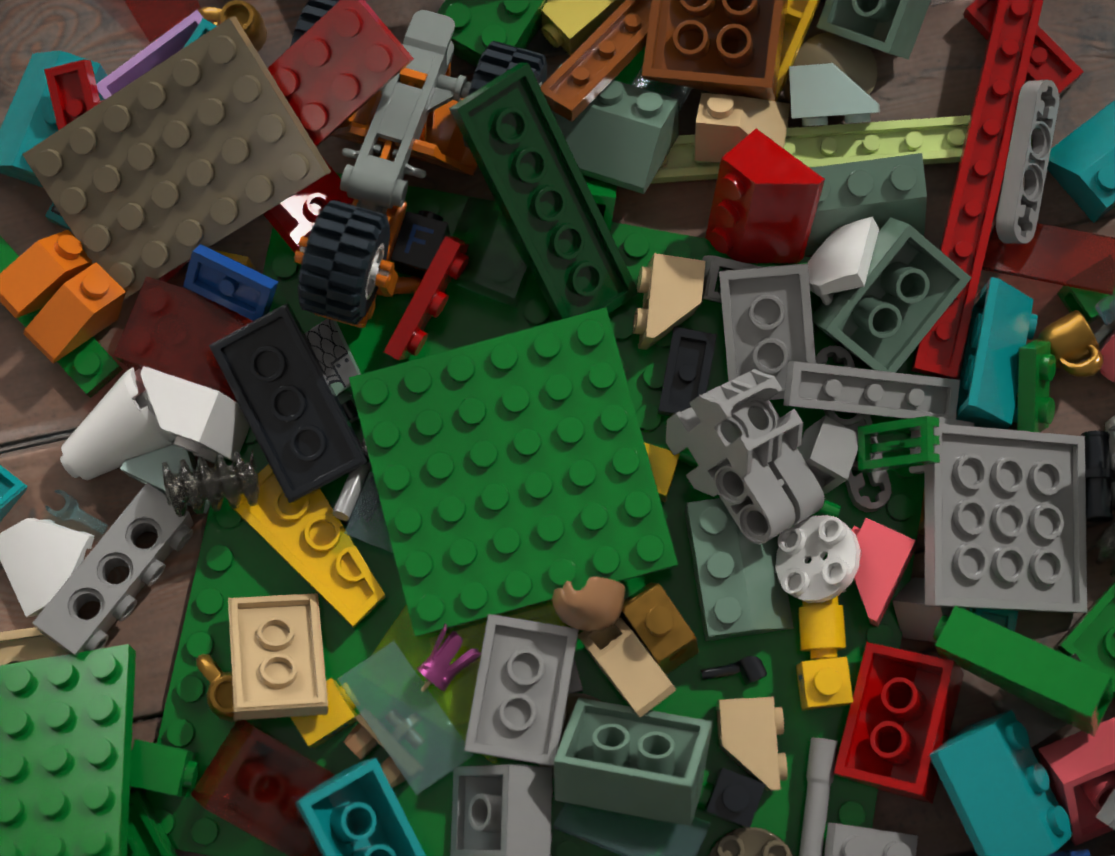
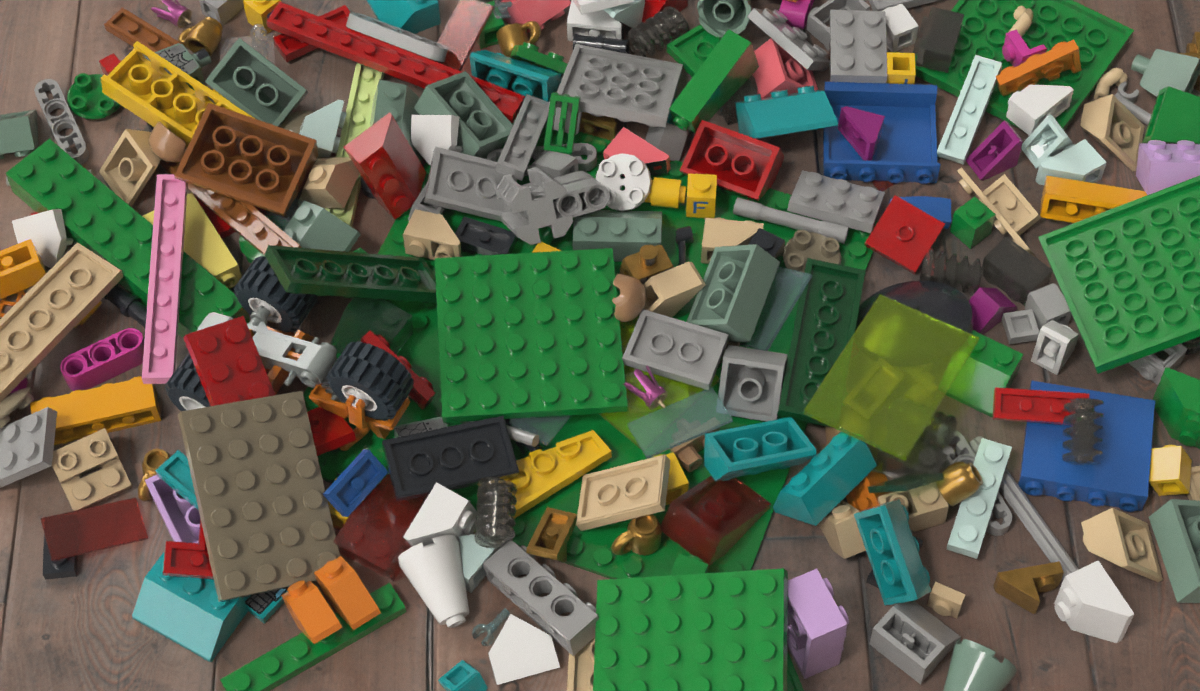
camera: 80 degrees left, 20 degrees down
(201, 568) = (552, 534): none -> pearl gold slope

